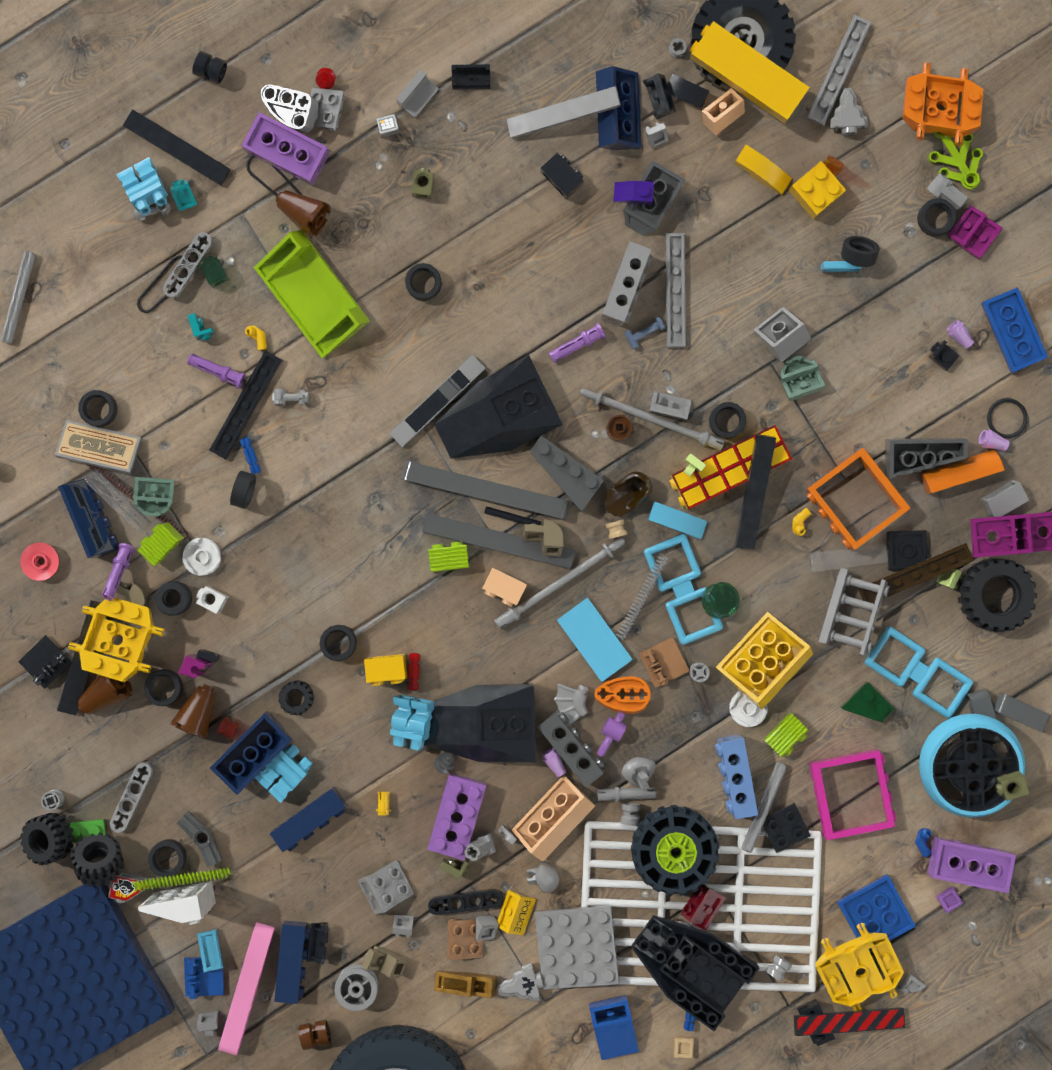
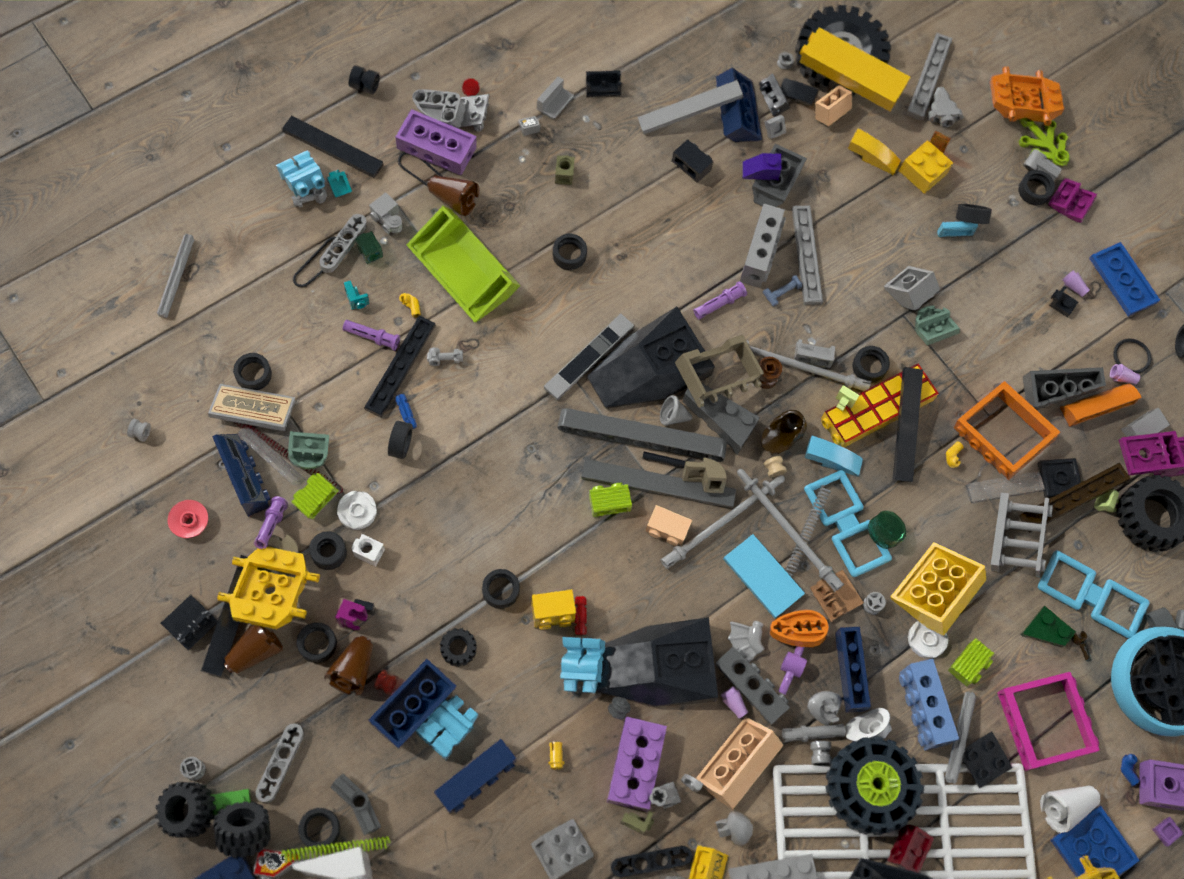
camera: 10 degrees left, 20 degrees down
(230, 228) = (385, 212): none -> light grey brick
(518, 467) = (673, 412): none -> light grey hat
(597, 416) = (737, 344): none -> dark tan hinge
(652, 642) = (825, 571): none -> light grey bar
(669, 738) = (852, 669): none -> dark blue brick
(678, 791) = (870, 725): none -> white piece
(859, 875) = (1068, 806): none -> white cone
(899, 721) = (1080, 642): none -> dark brown hand

